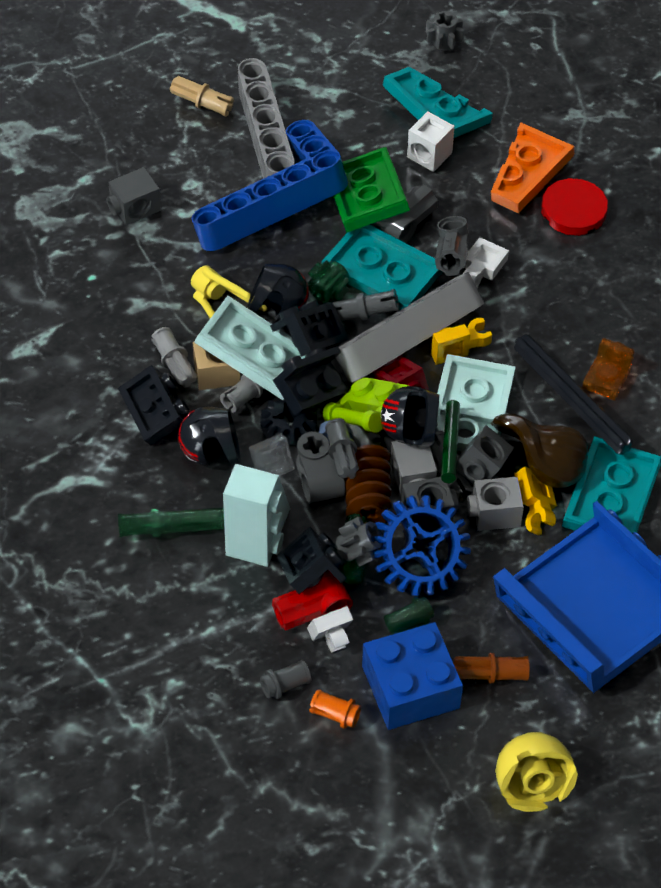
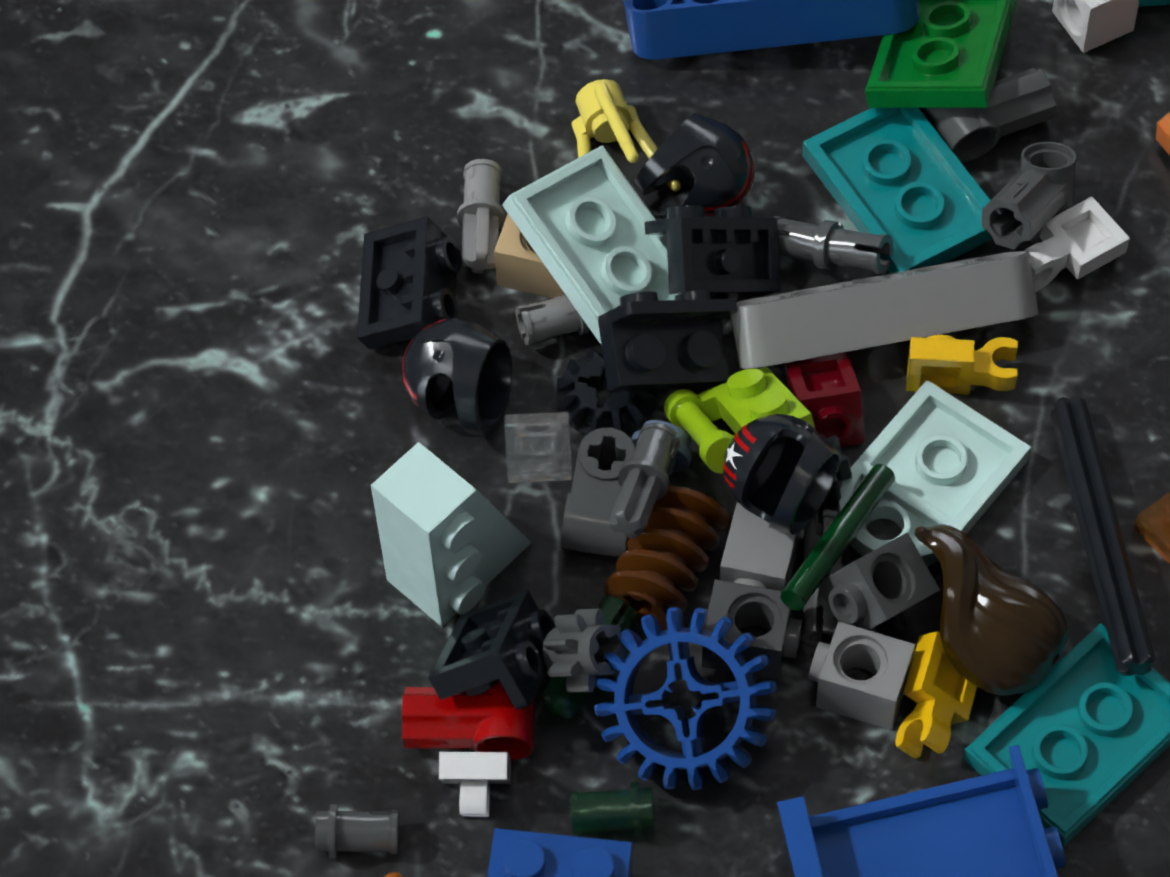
camera: 30 degrees right, 5 degrees up
(170, 521) = (305, 484): clear green pin -> none
(328, 281) = (795, 180): clear green gear -> none

